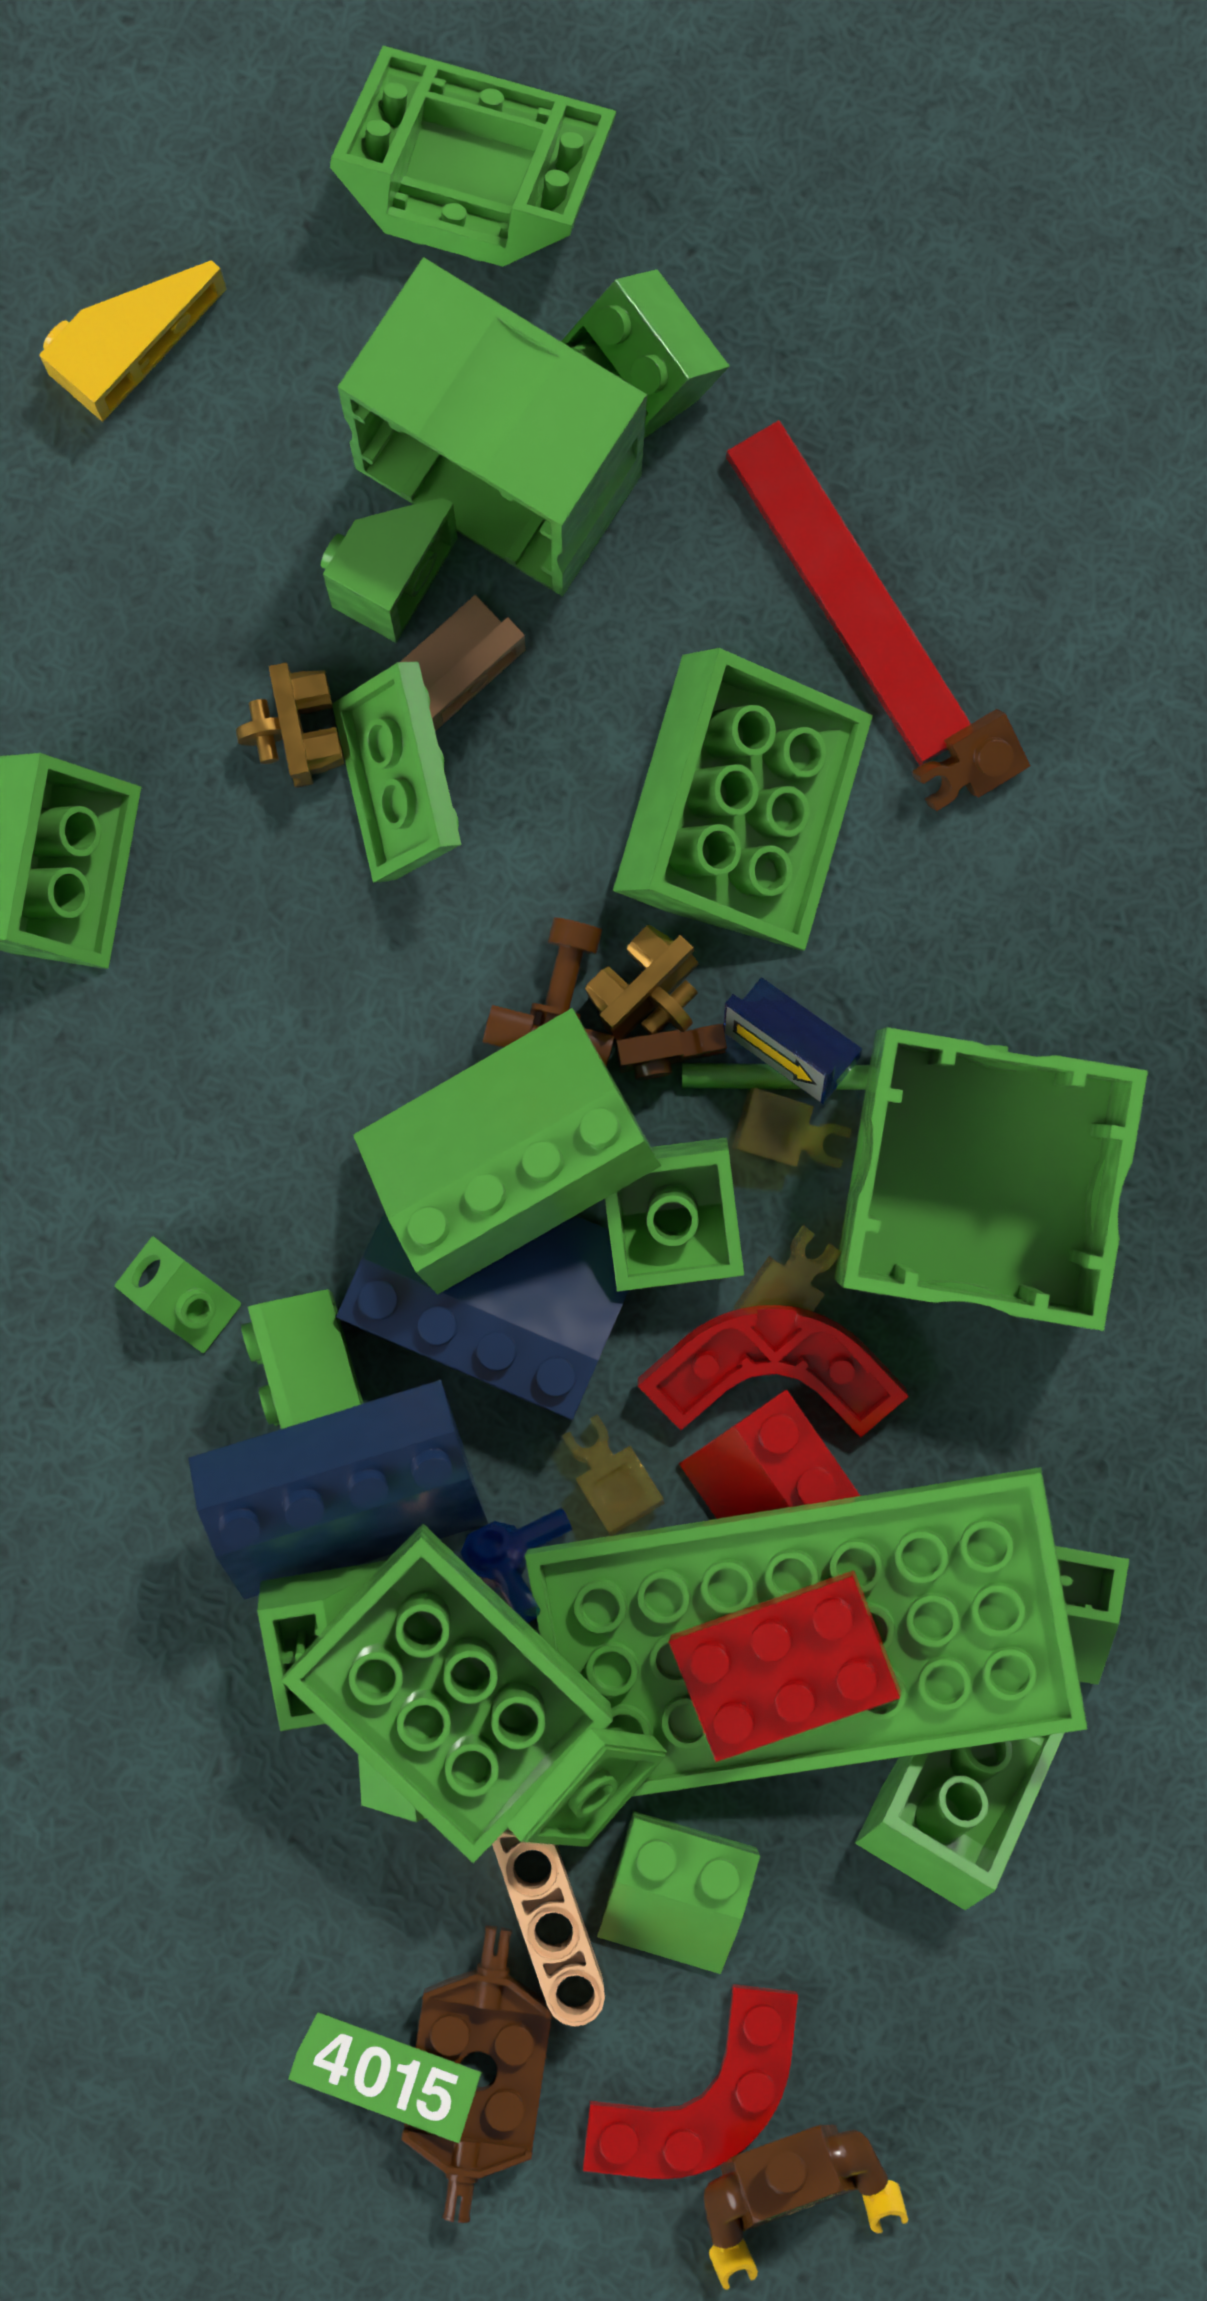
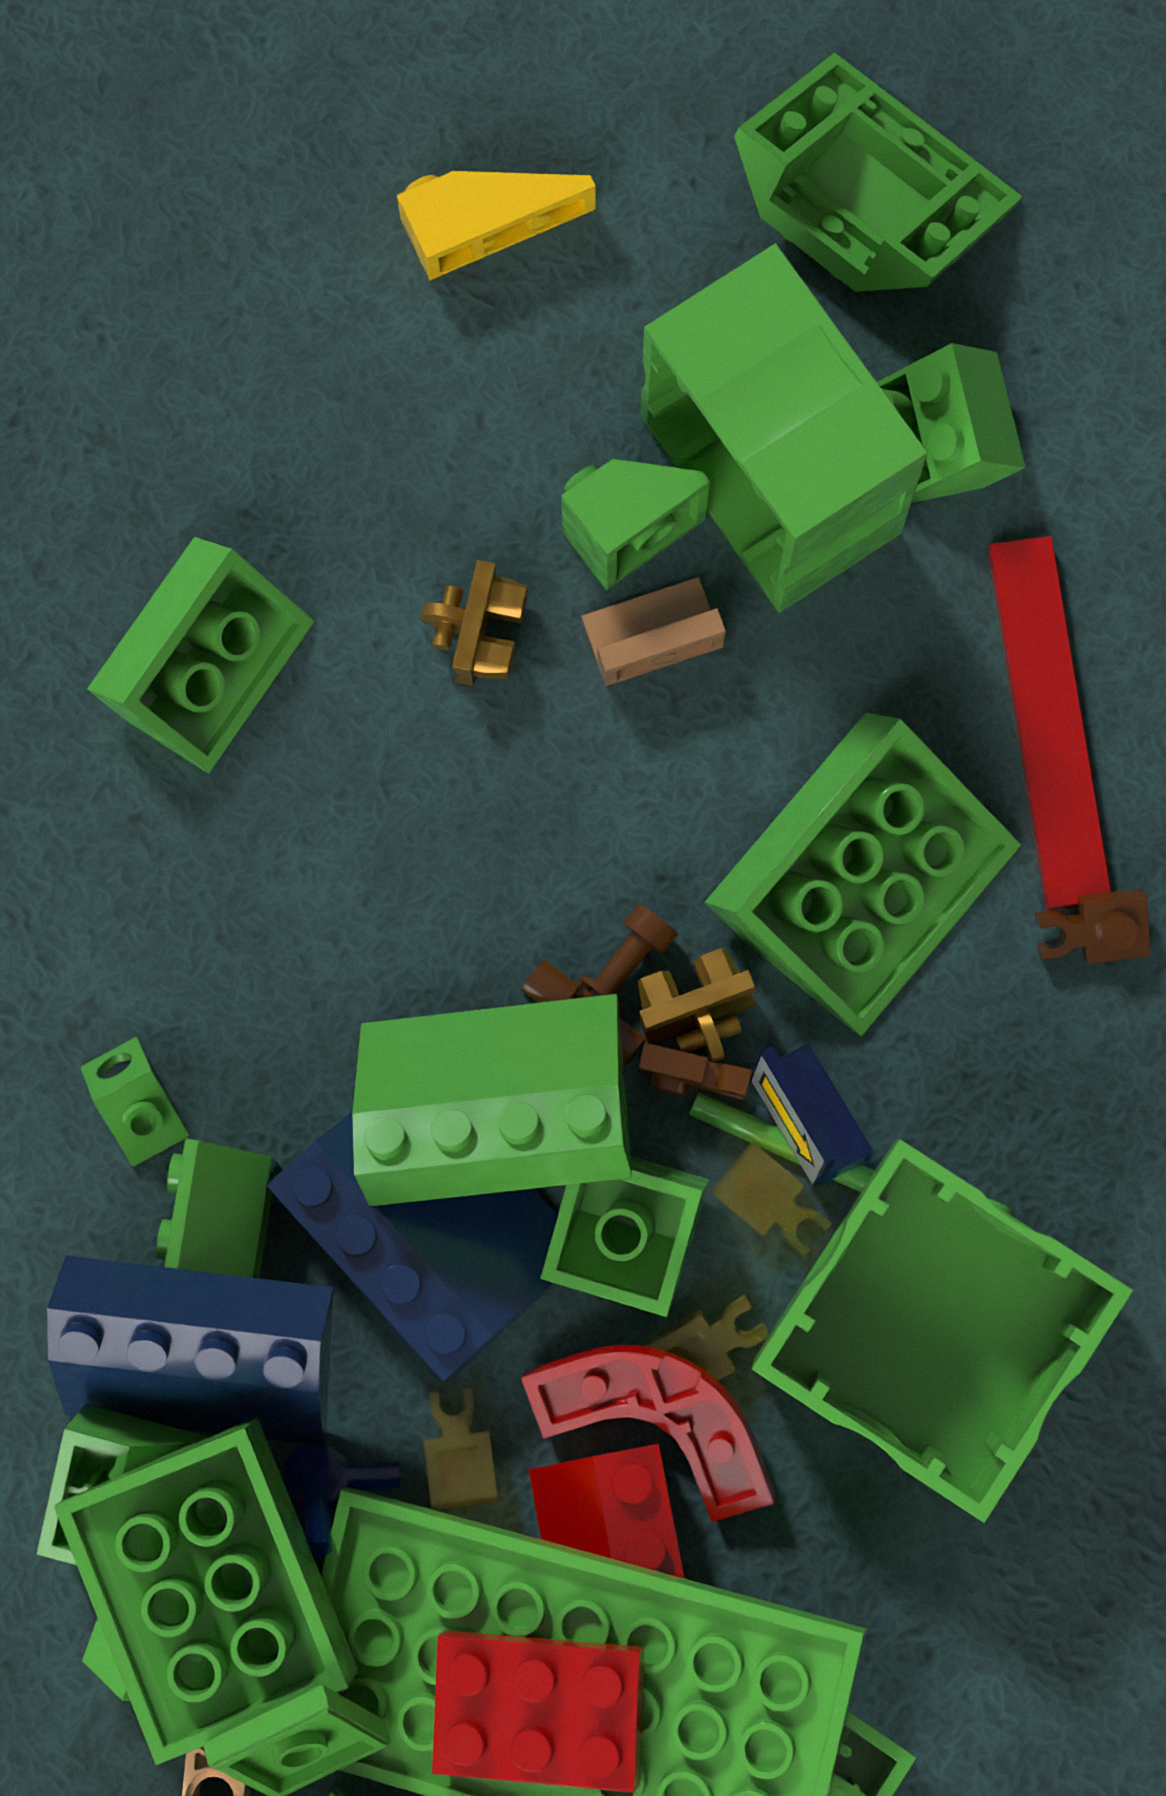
camera: 30 degrees right, 5 degrees down
(396, 772) = (551, 706): bright green plate -> none

